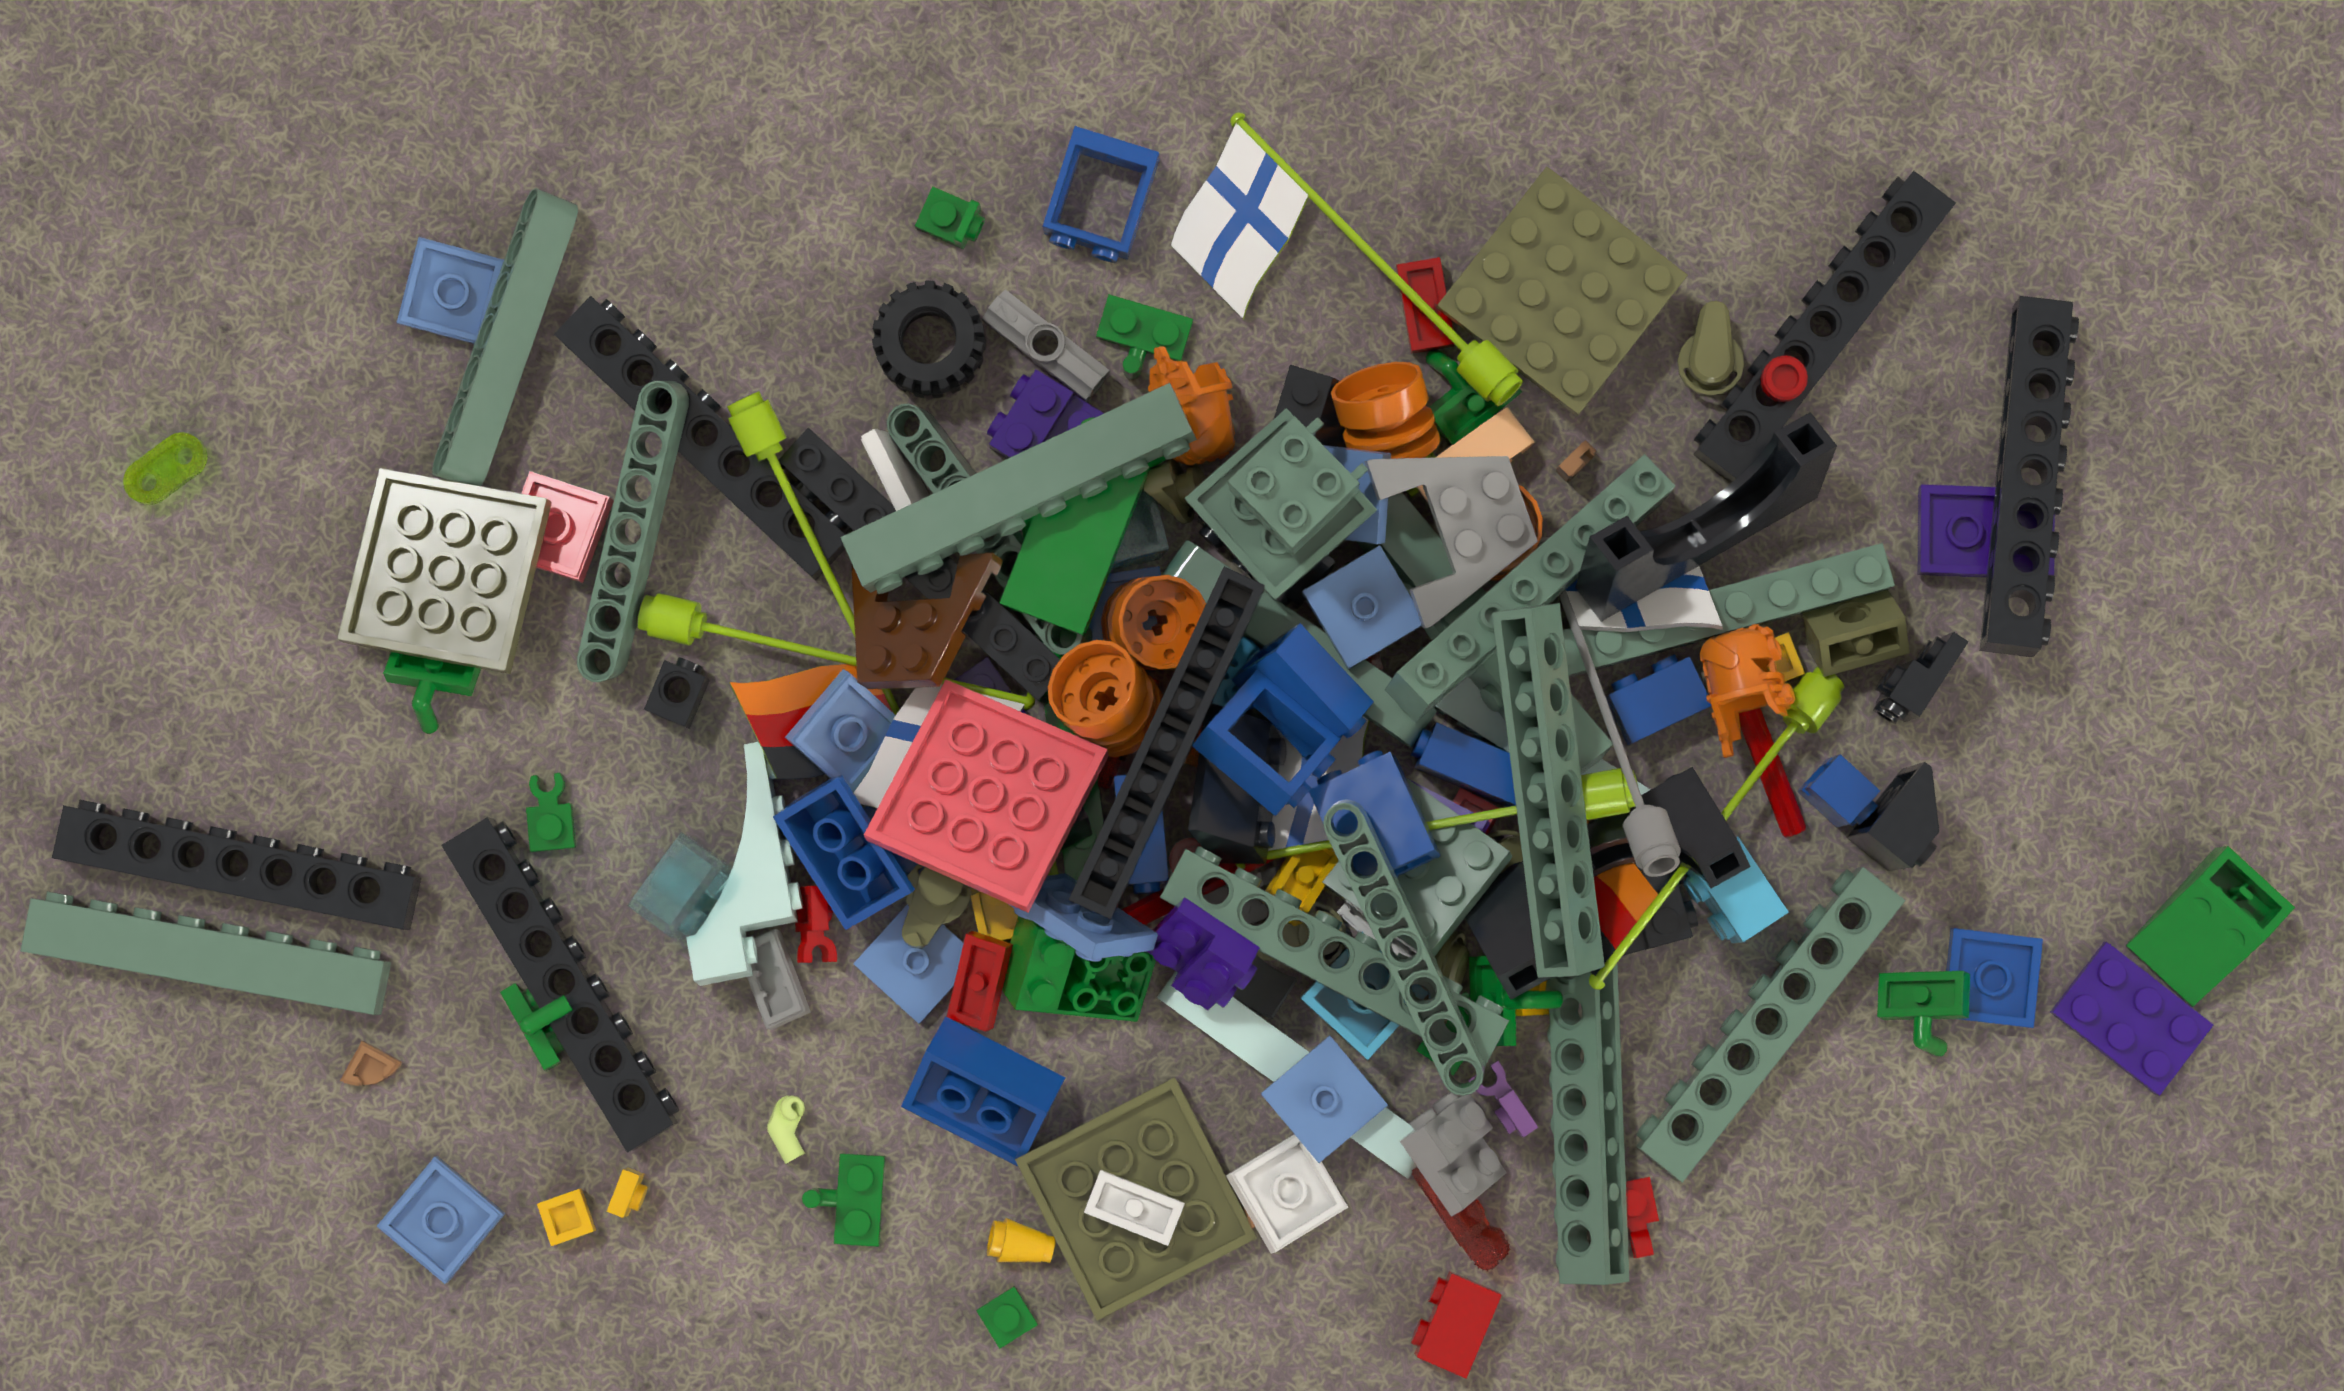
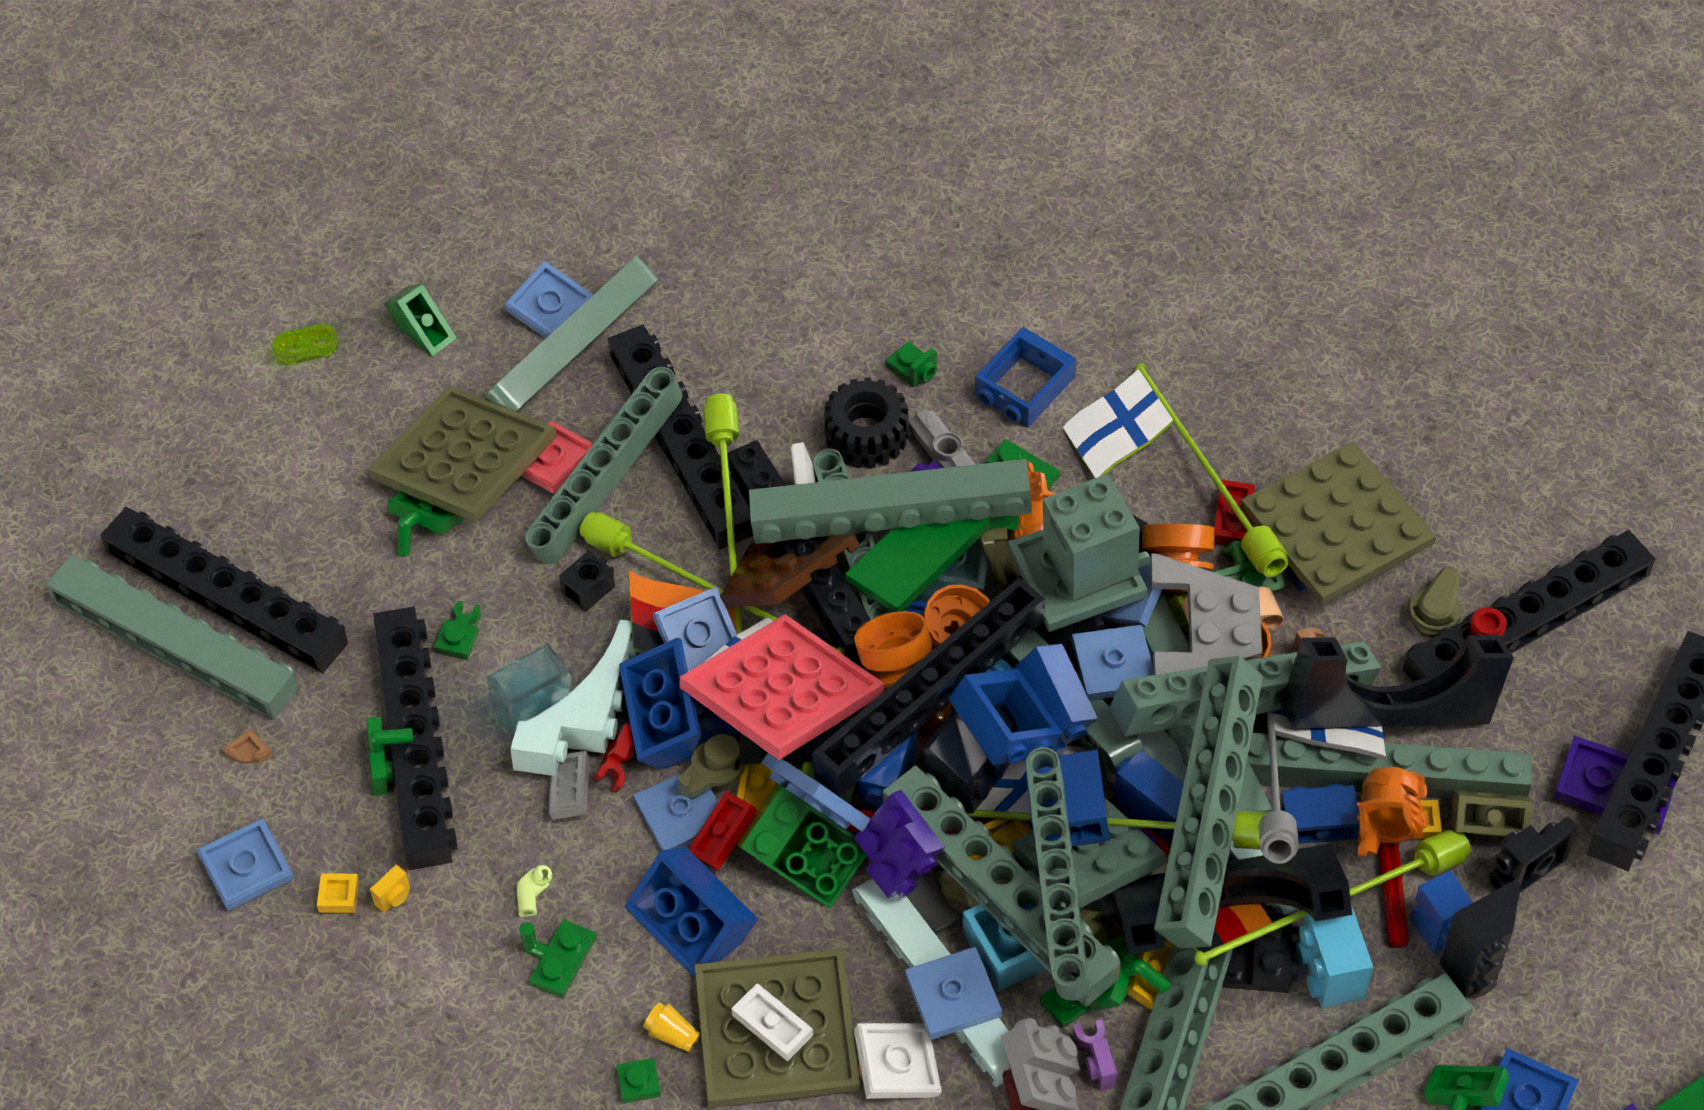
camera: 20 degrees right, 30 degrees down
(296, 379) = (420, 318): none -> green slope

